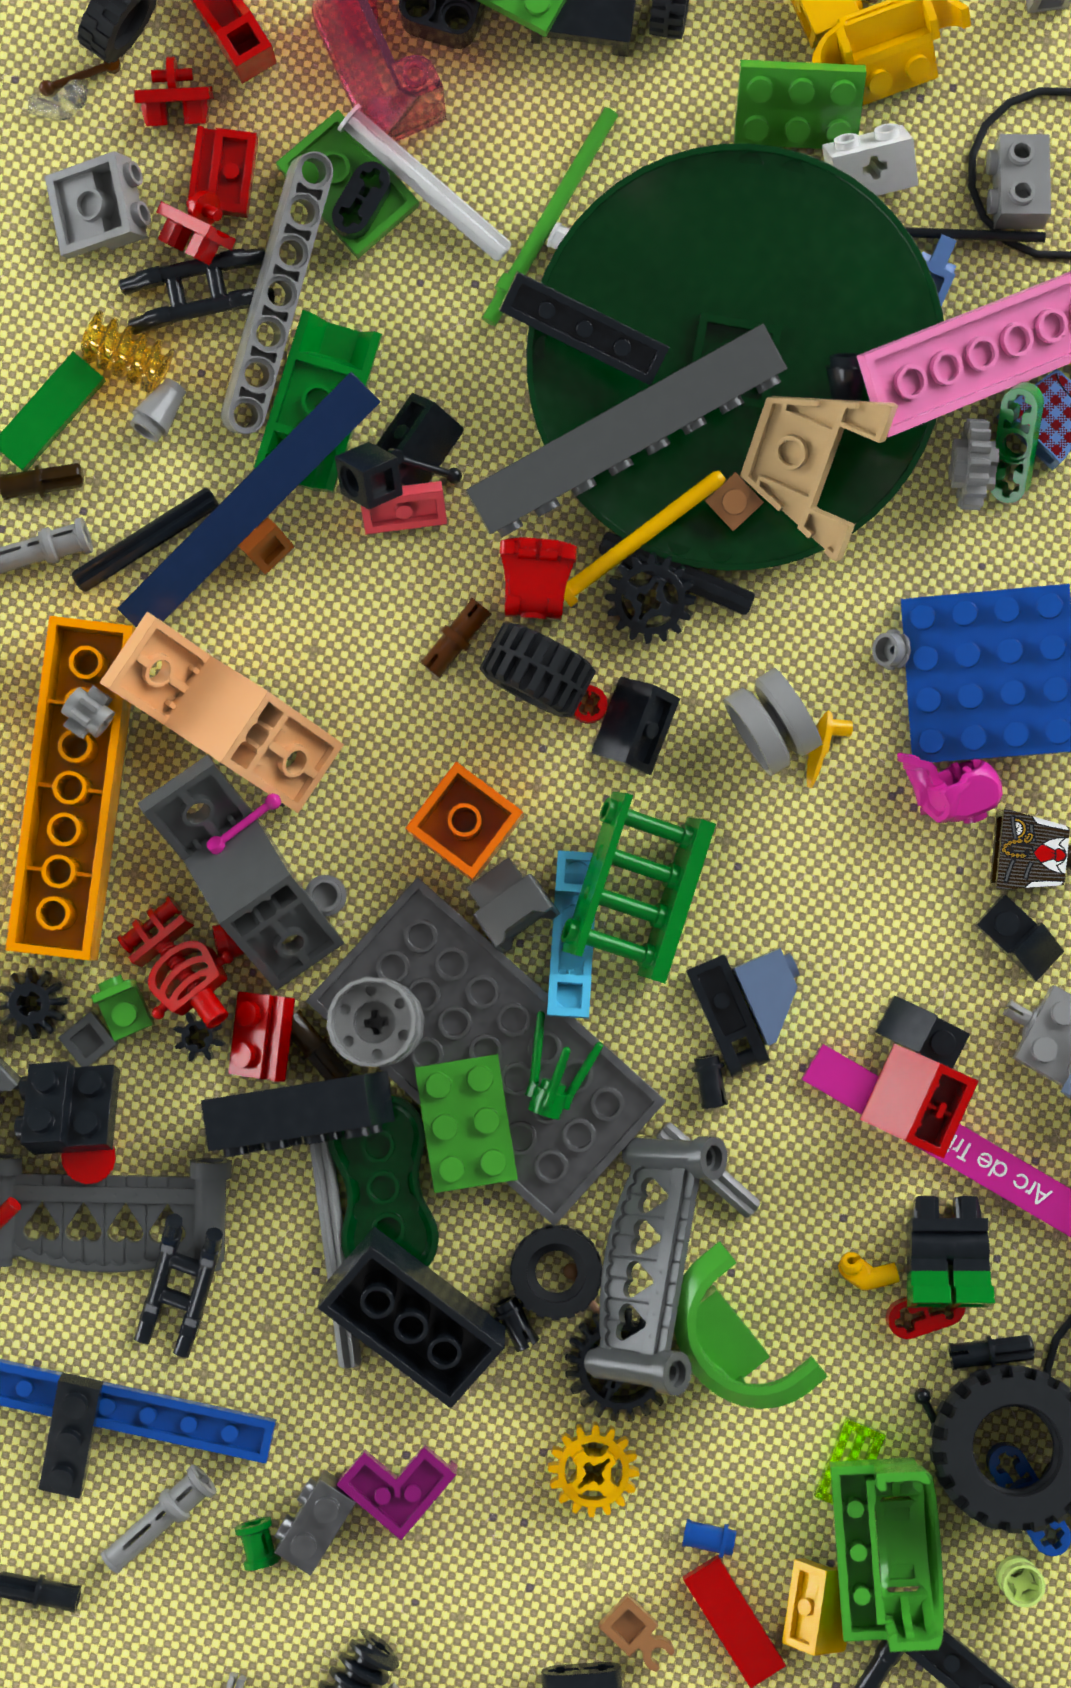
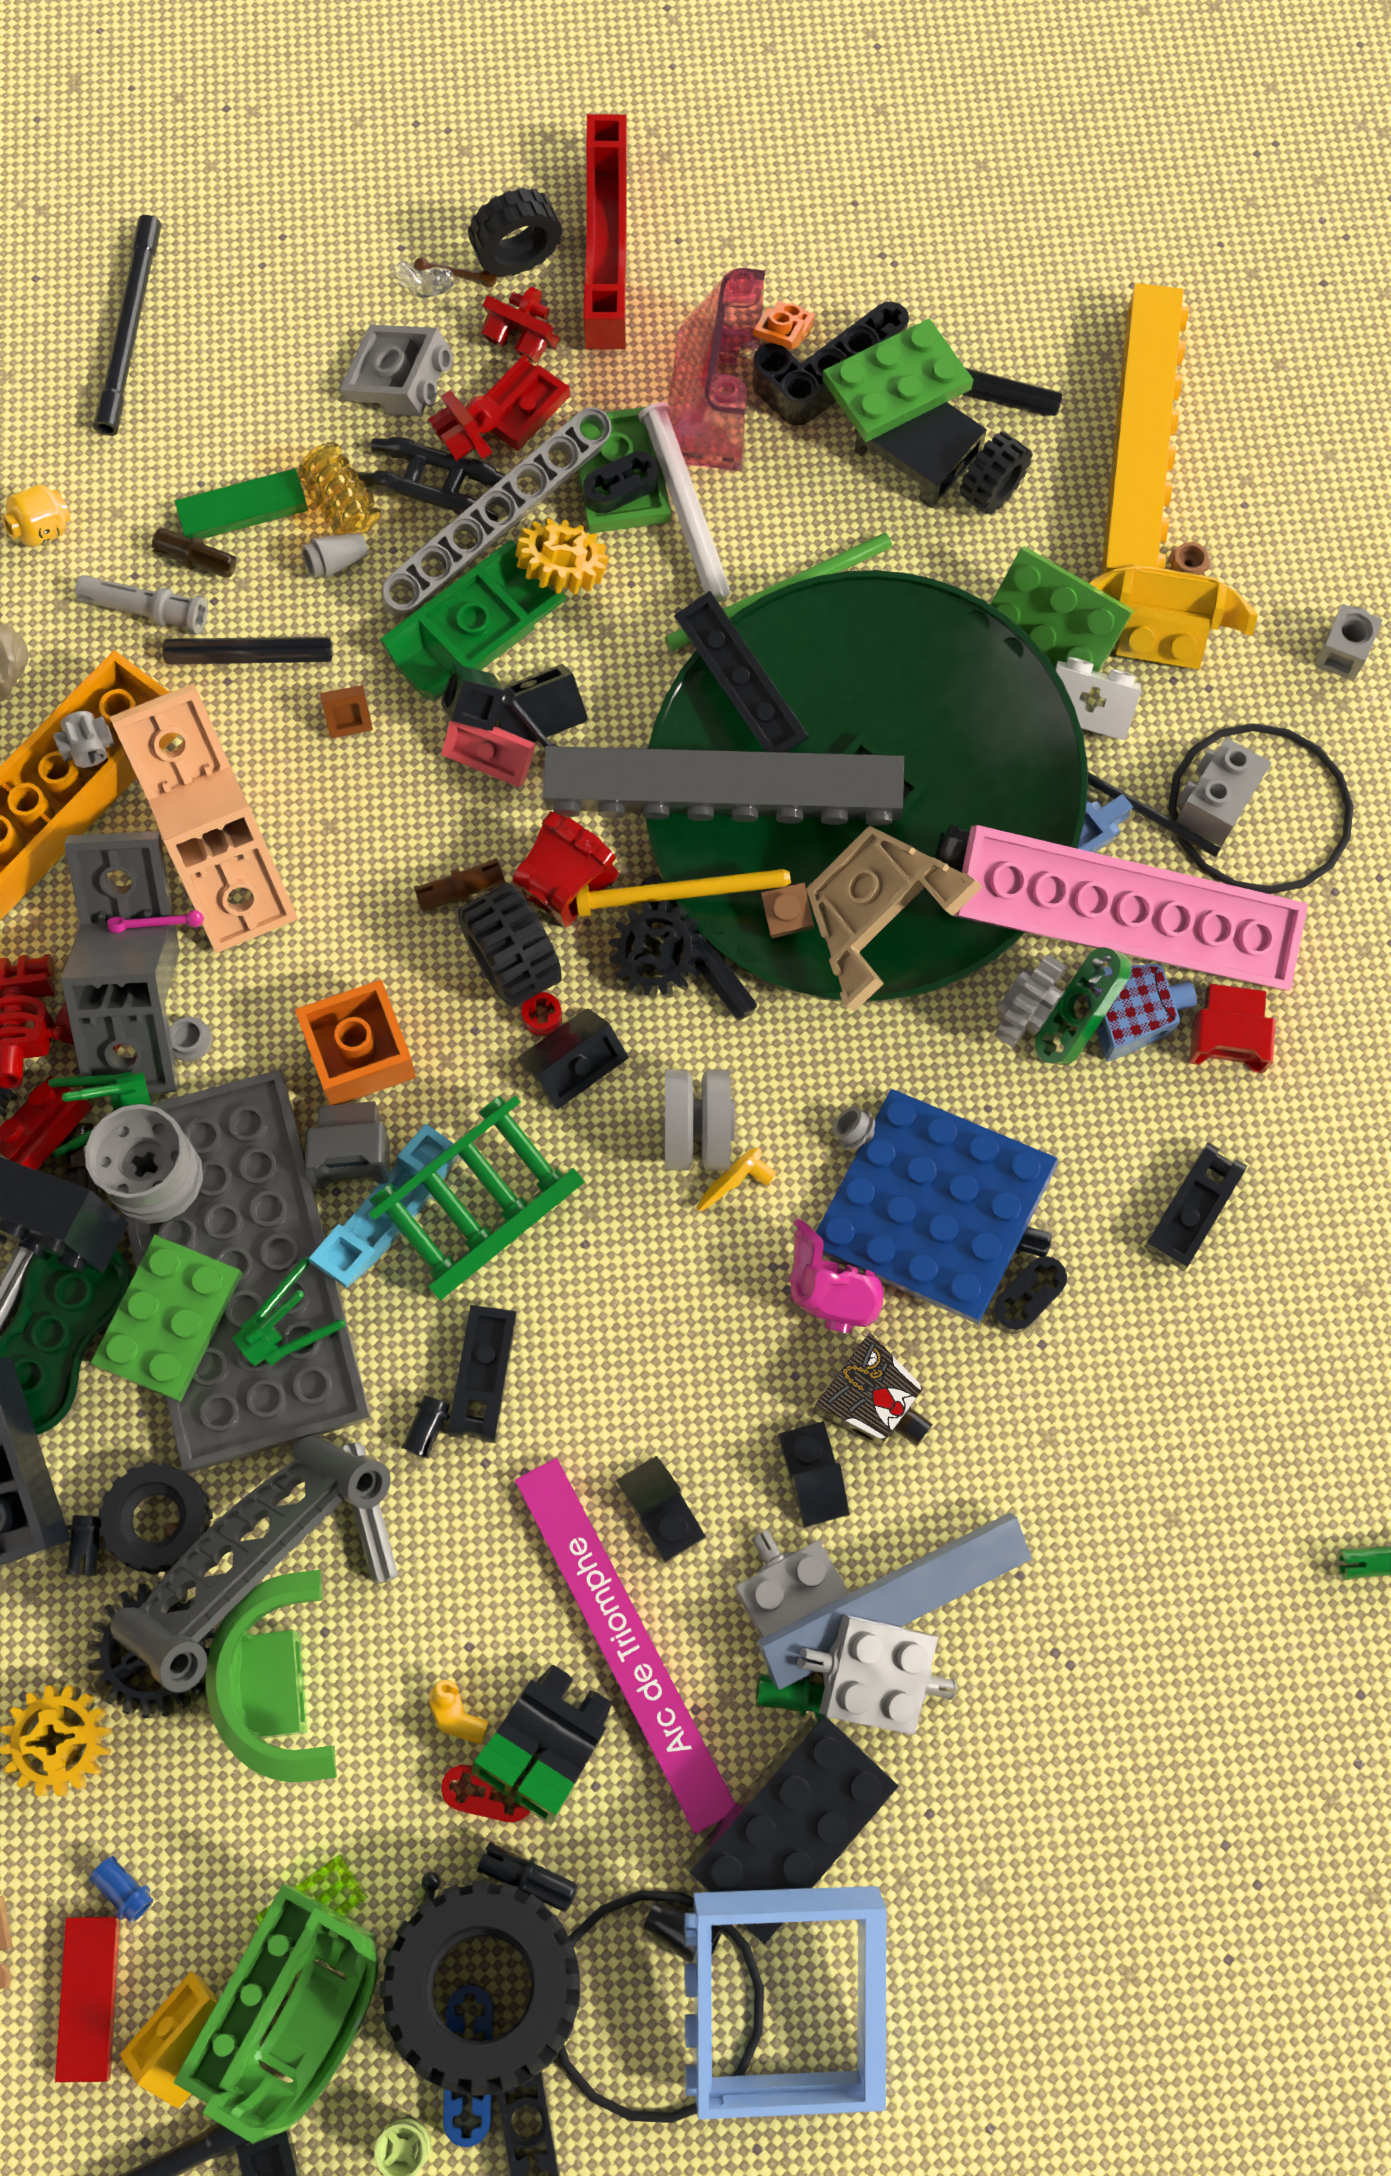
camera: 30 degrees right, 15 degrees down
(251, 501) = (362, 663): dark blue tile -> none
(316, 972) = (123, 1089): none -> green plant
(354, 298) = (561, 556): none -> yellow gear
(768, 990) = (536, 1371): sand blue slope -> none
(919, 1100) = (611, 1563): slope -> none

